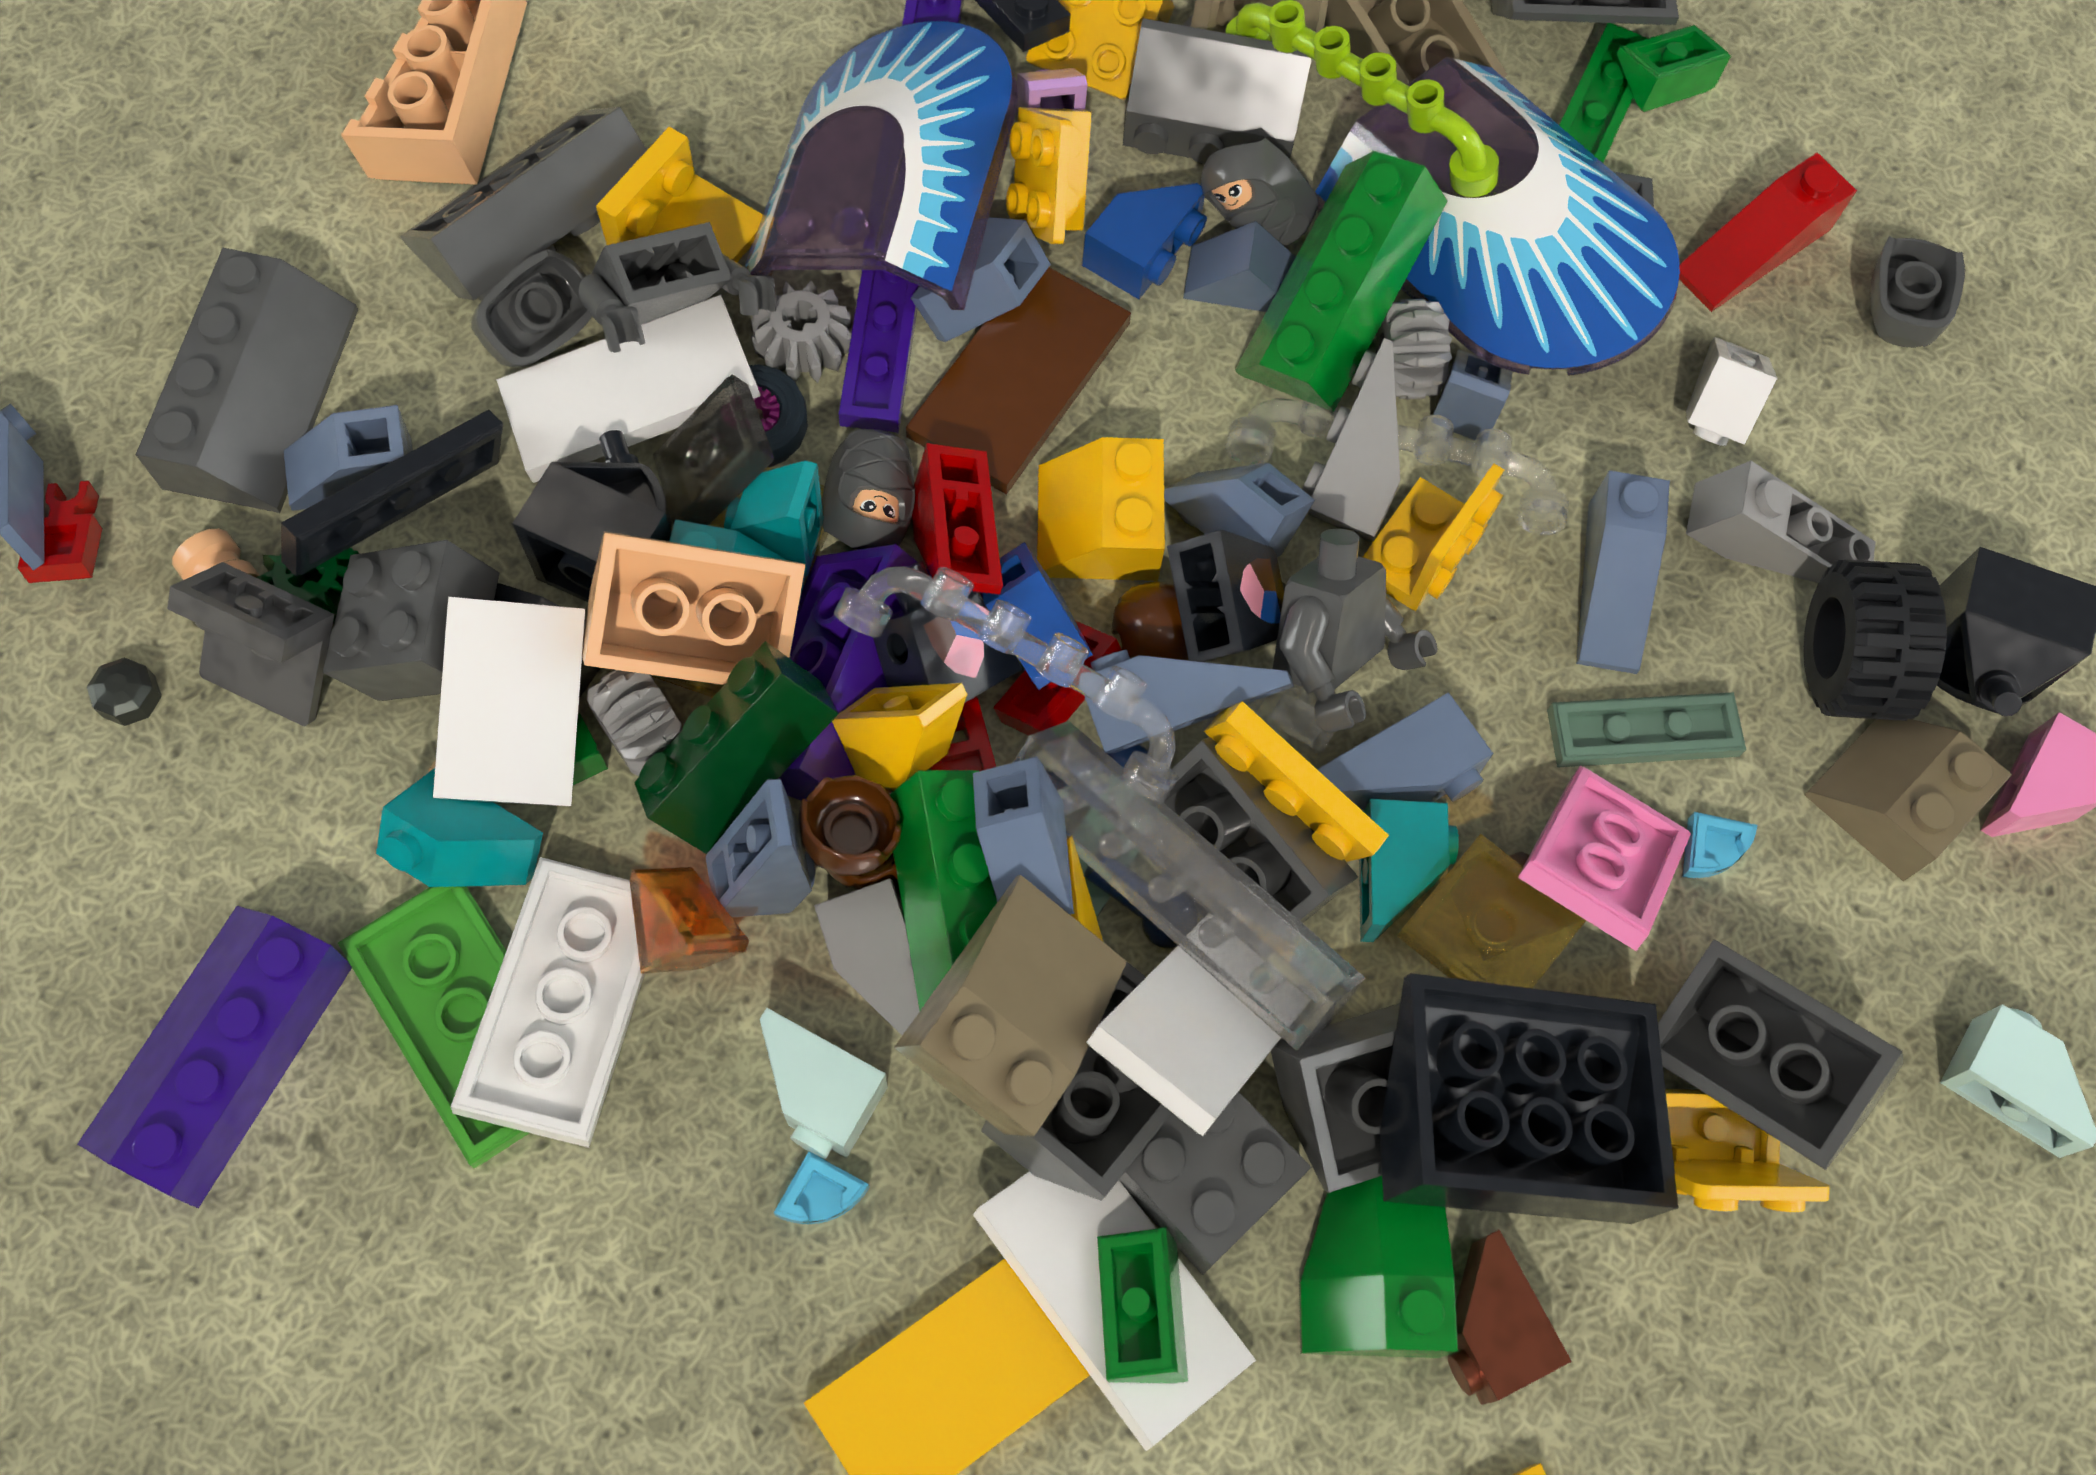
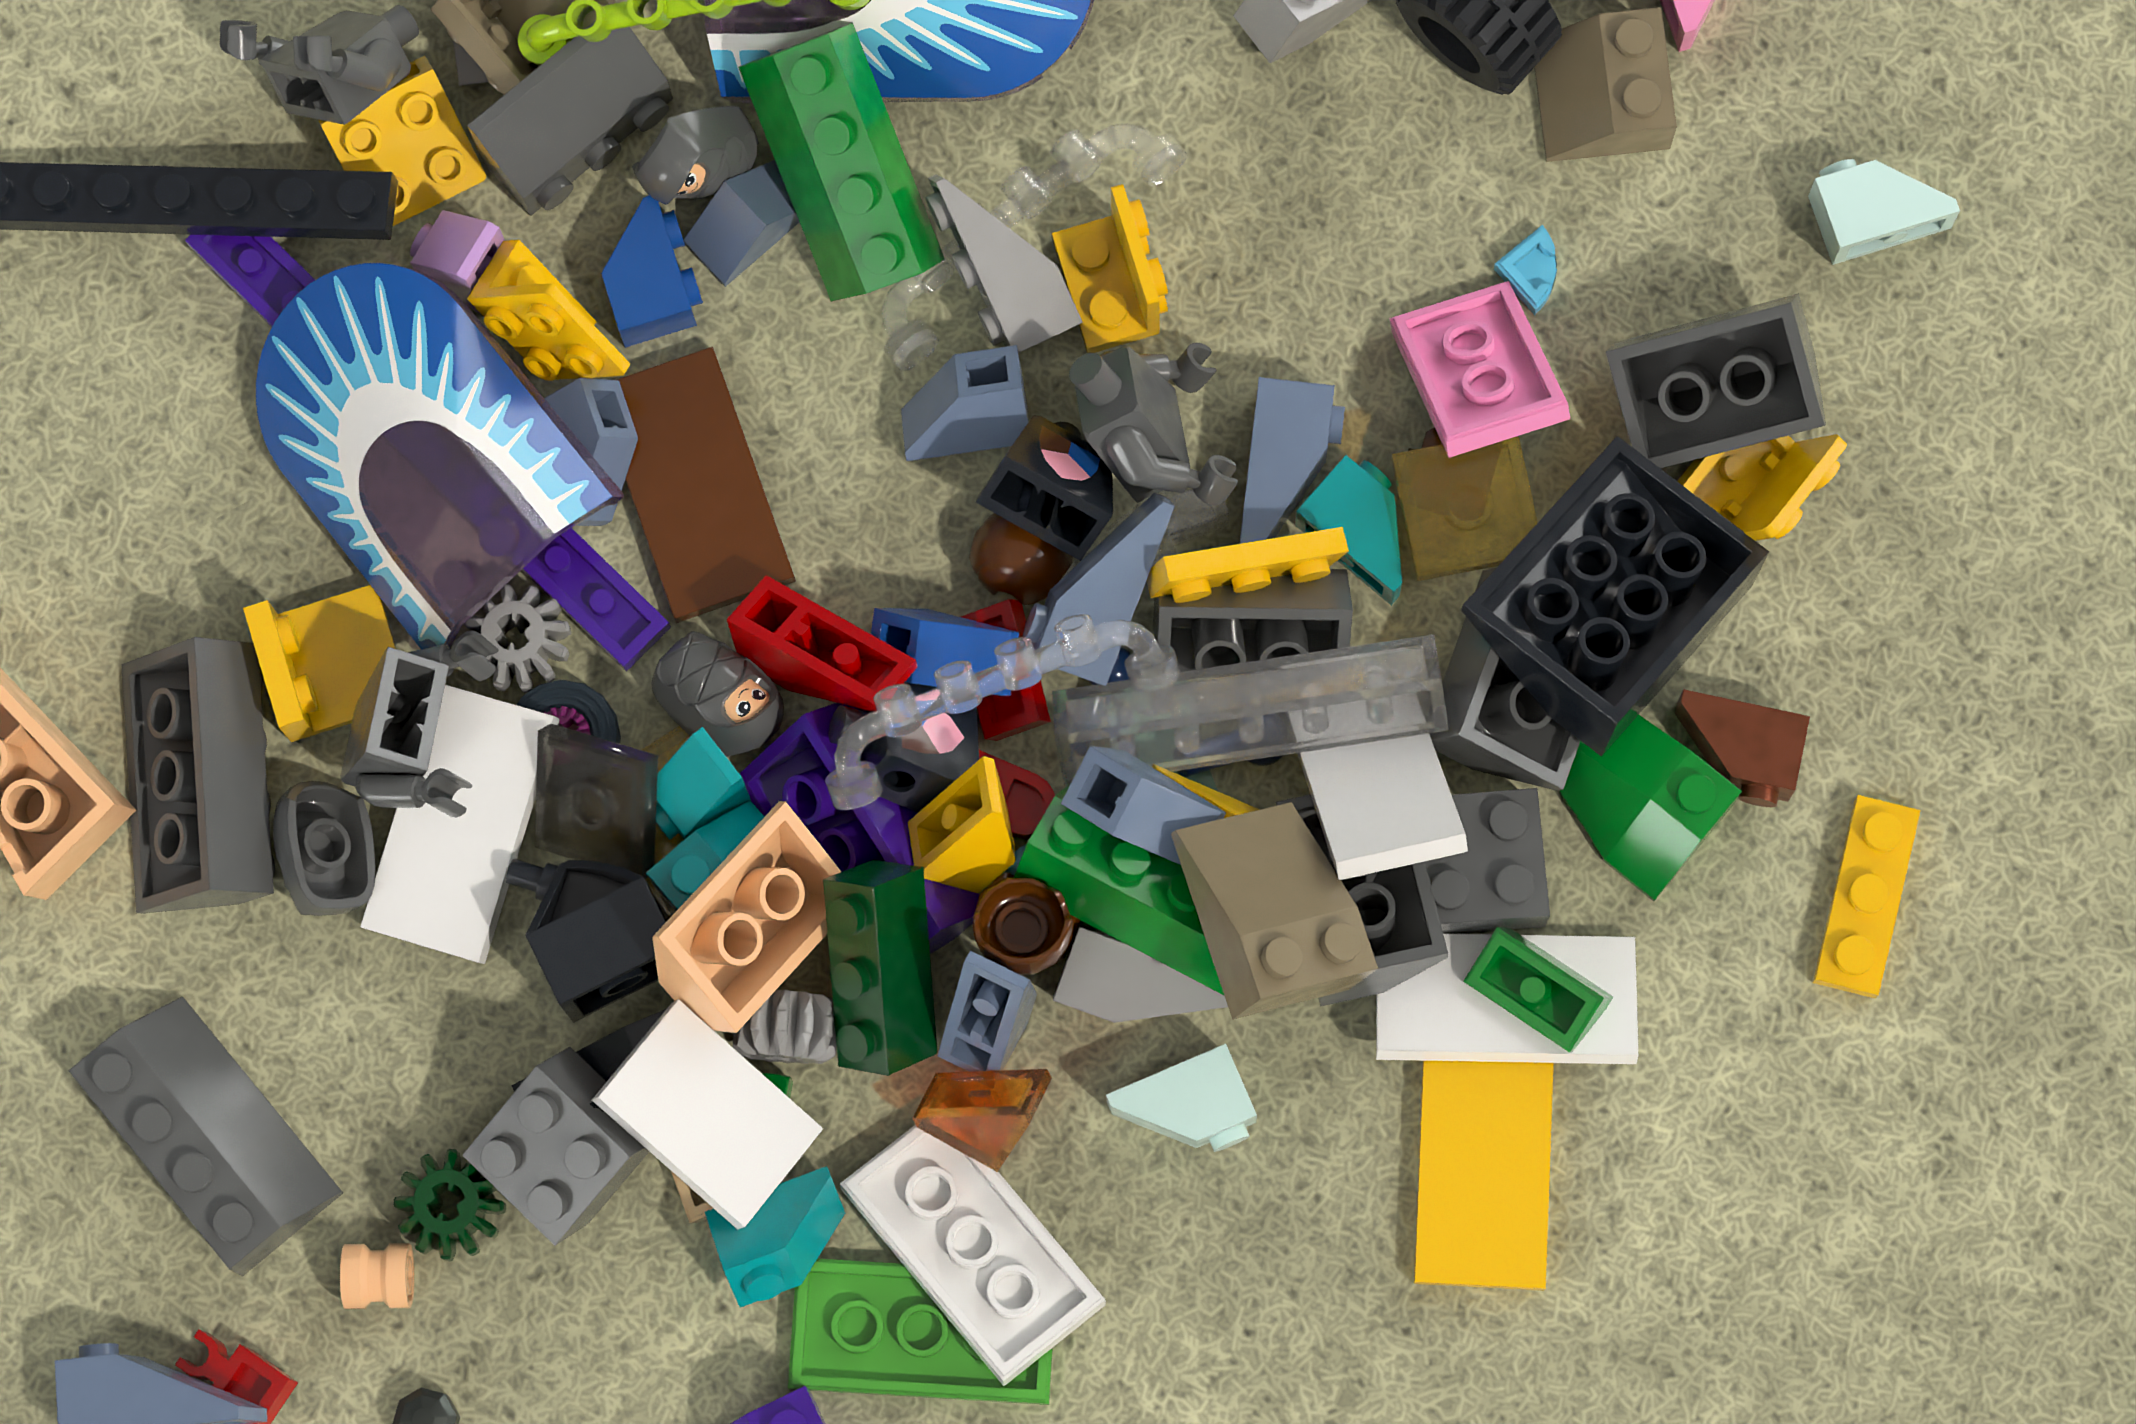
camera: 40 degrees left, 10 degrees up
(257, 639) = (484, 1278): flat silver bracket -> none
(342, 452) = (356, 1101): sand blue slope -> none
(390, 493) = (430, 1082): black tile -> none
(819, 1192) = (1268, 1160): medium azure tile -> none
(1103, 511) = (881, 519): yellow slope -> none
(1419, 347) = (942, 144): light grey gear -> none
(1473, 394) = (1014, 129): sand blue slope -> none
(1621, 569) = (1260, 145): sand blue slope -> none
(1646, 729) = (1400, 239): sand green tile -> none

